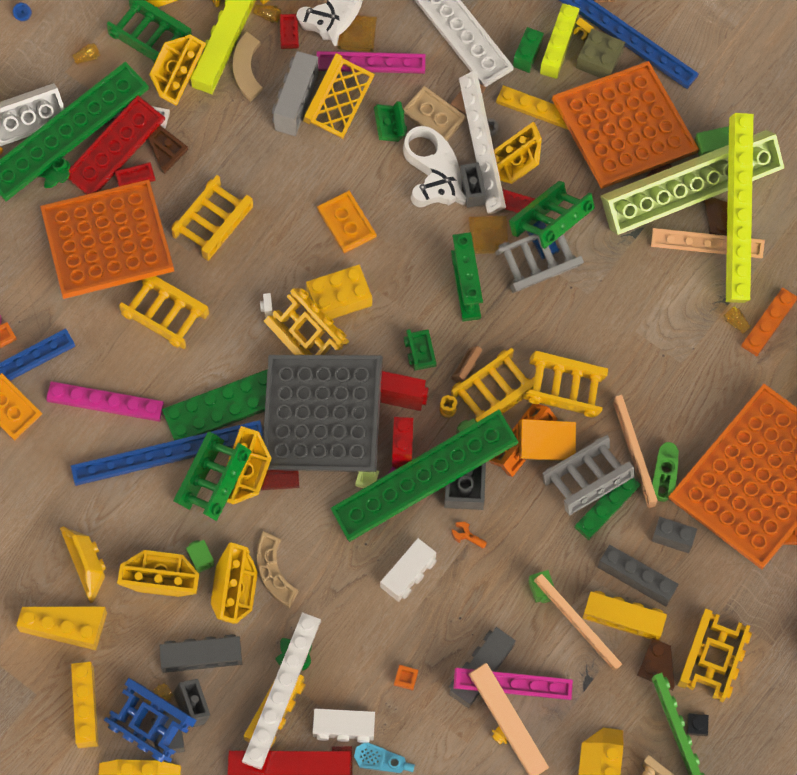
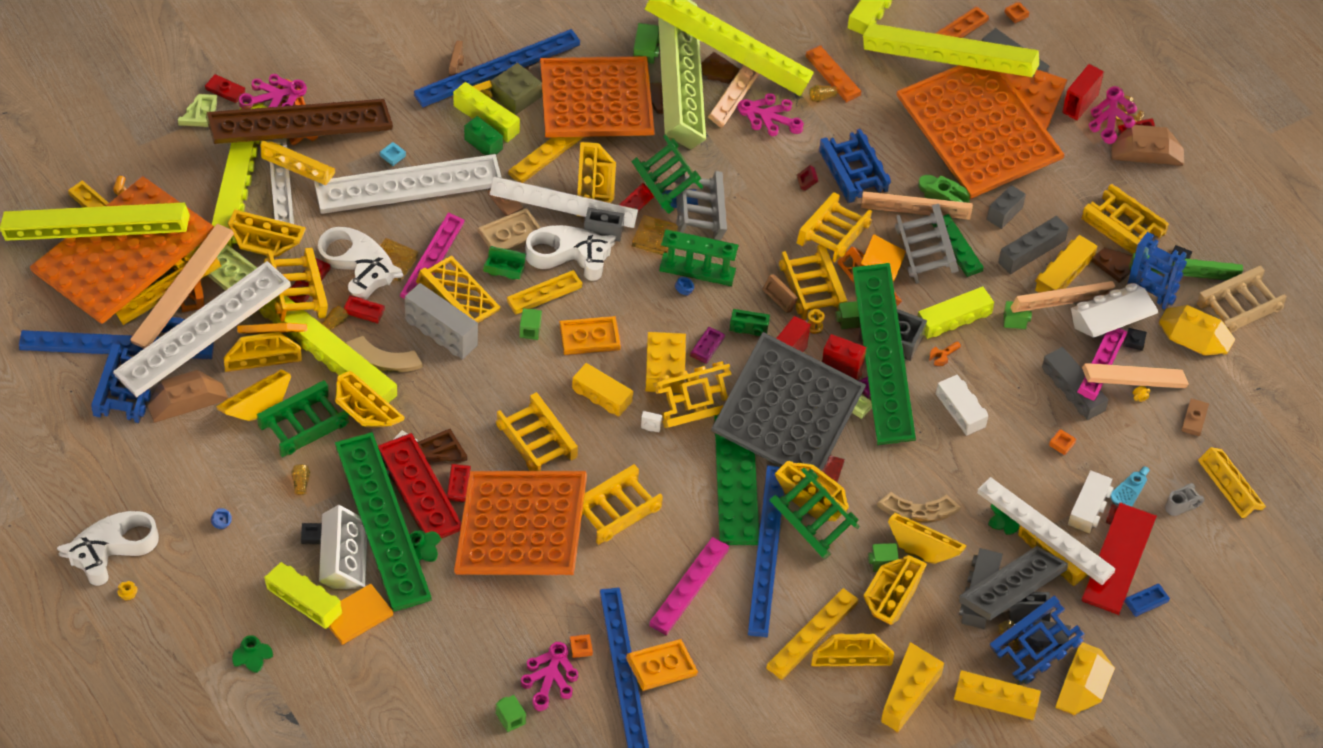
camera: 70 degrees left, 15 degrees down
(33, 81) = (311, 533): none -> black plate
(95, 522) = (812, 633): none -> yellow plate
(204, 678) = (1013, 583): none -> dark grey plate
(284, 252) = (602, 389): none -> yellow brick
(333, 167) = (530, 323): none -> bright green brick
(375, 166) = (544, 292): none -> yellow plate
(378, 323) = (707, 345): none -> magenta plate
(438, 279) = (684, 286): none -> blue tile
(518, 529) = (957, 312): none -> neon yellow brick
(569, 711) = (1135, 339): none -> black plate
(584, 676) = (1113, 310): none -> white slope
(620, 341) = (807, 178): none -> dark red plate
(642, 687) = (1162, 262): none -> blue fence
(647, 368) = (842, 172): none -> blue fence
(685, 280) = (750, 108): none -> dark pink plant

